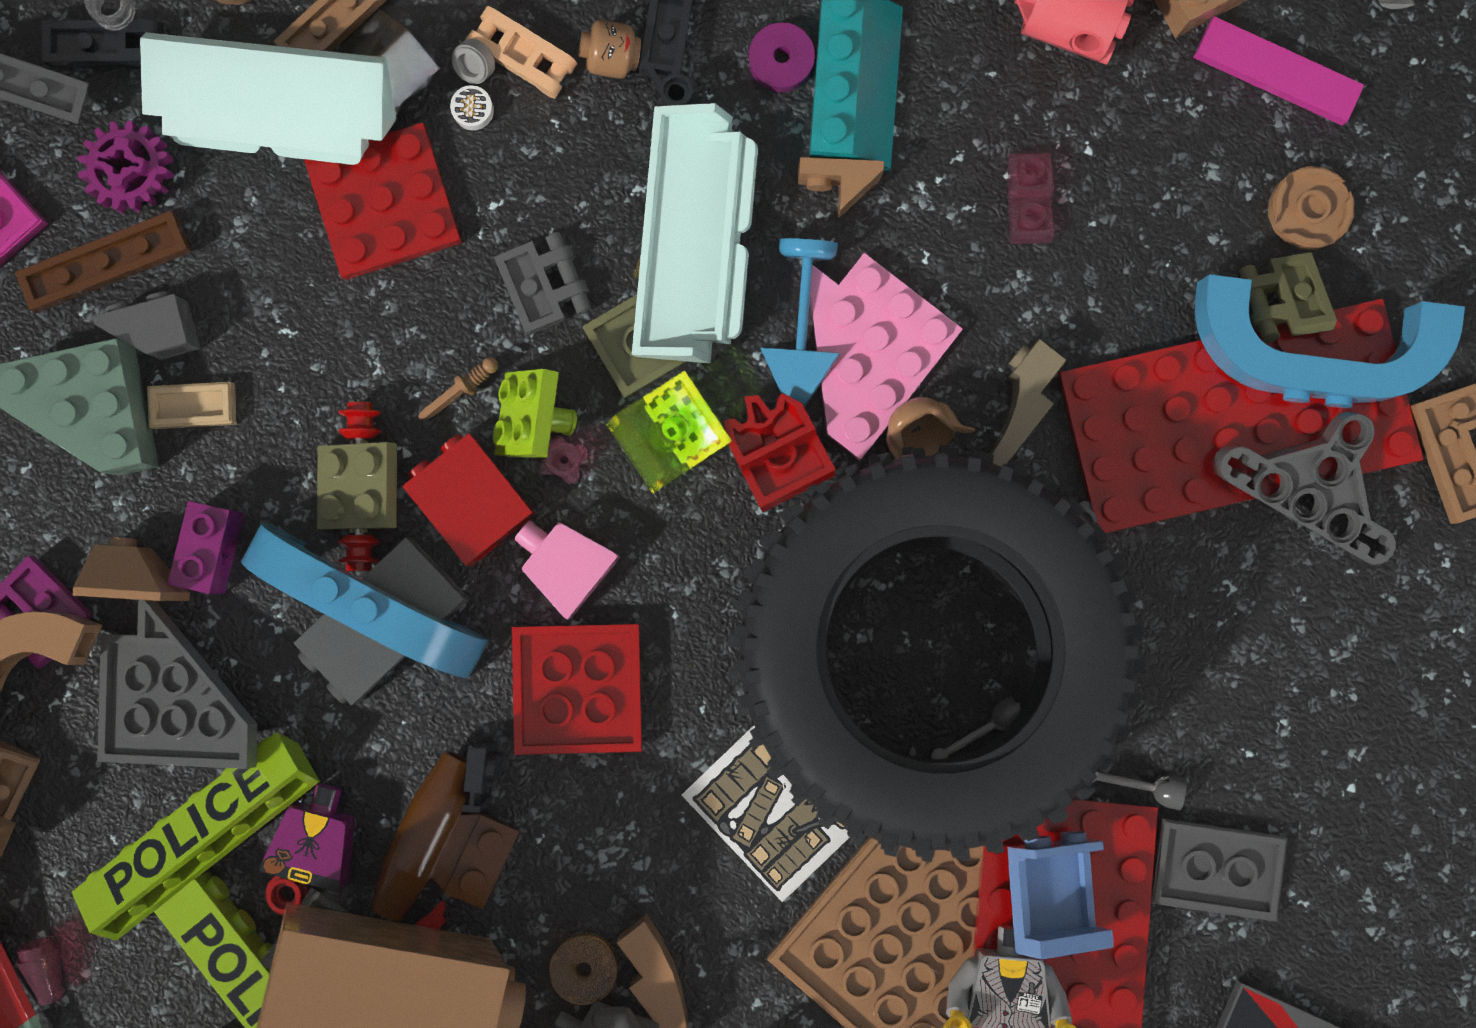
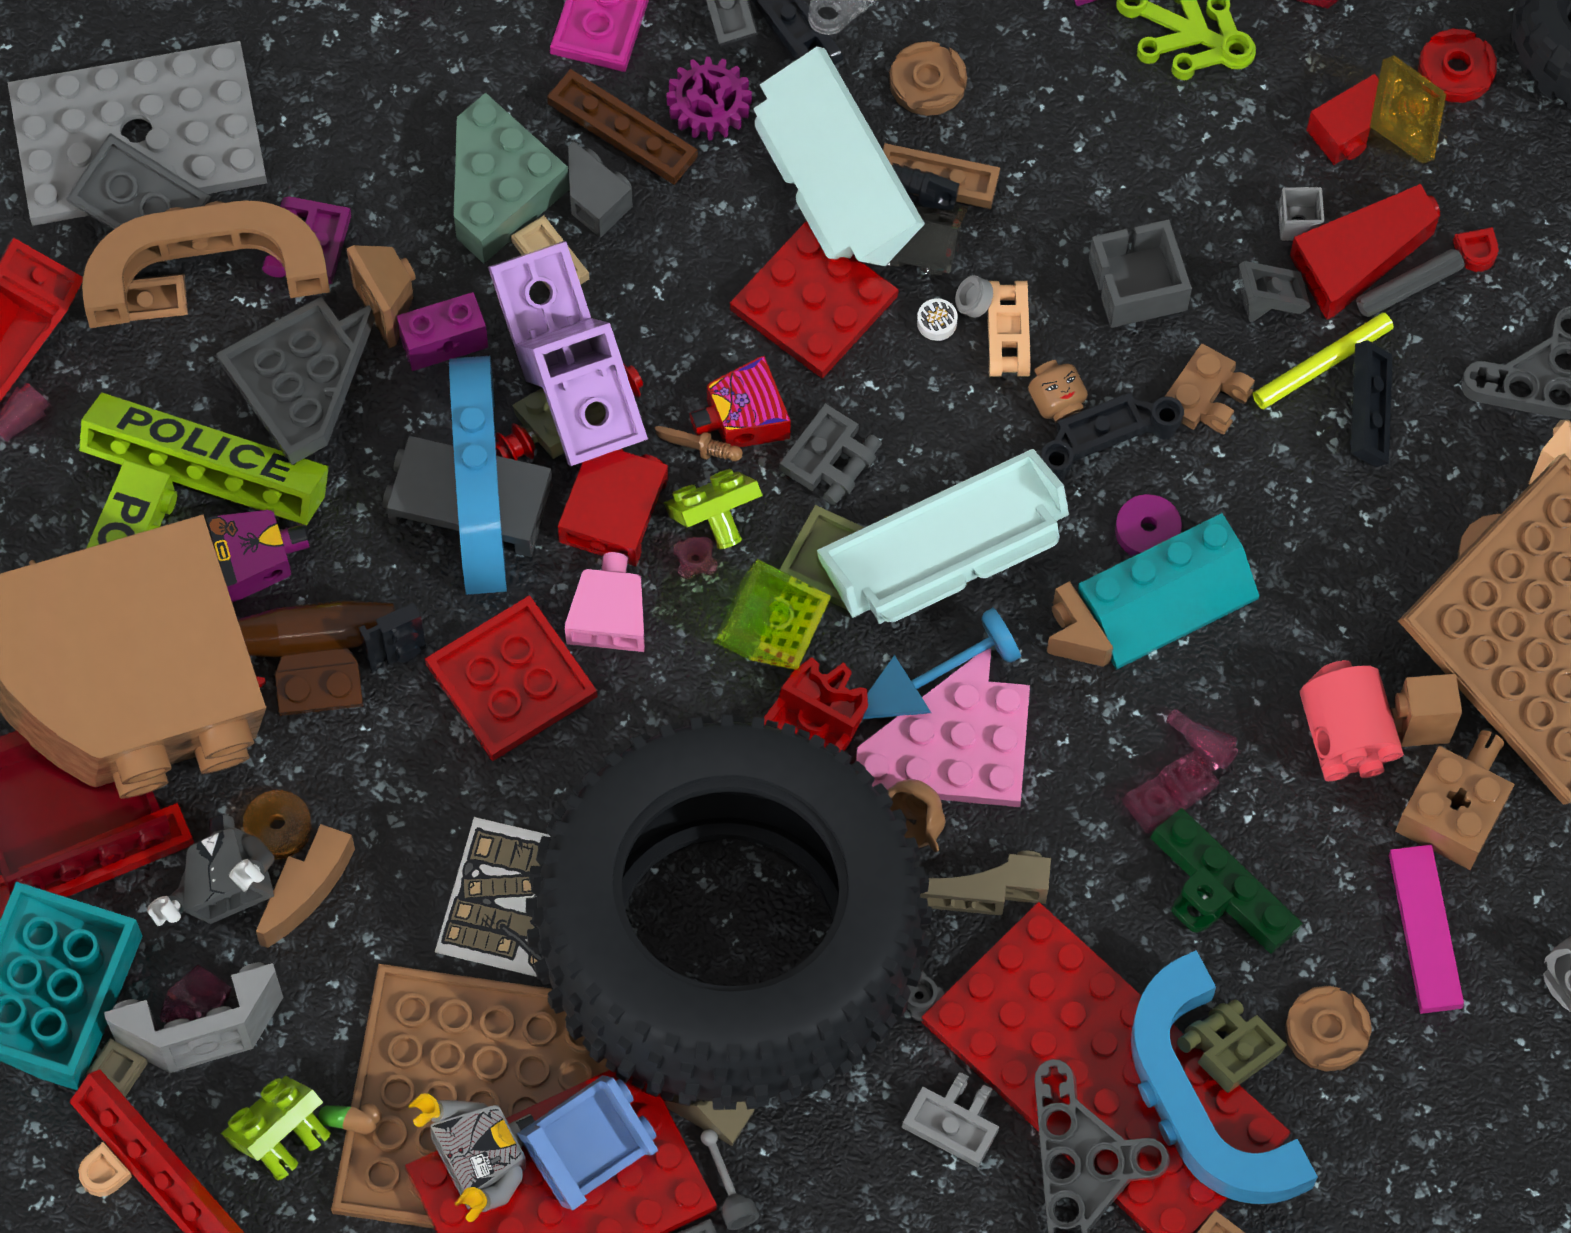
camera: 60 degrees right, 20 degrees down
(305, 455) = (567, 353): none -> lavender bracket
(345, 32) = (927, 188): none -> black hinge
(451, 329) = (744, 407): none -> torso
(1011, 138) = (1213, 746): none -> clear pink cone
(1139, 212) = (1221, 885): none -> dark green plate
(1206, 571) = (950, 1125): none -> light grey hinge

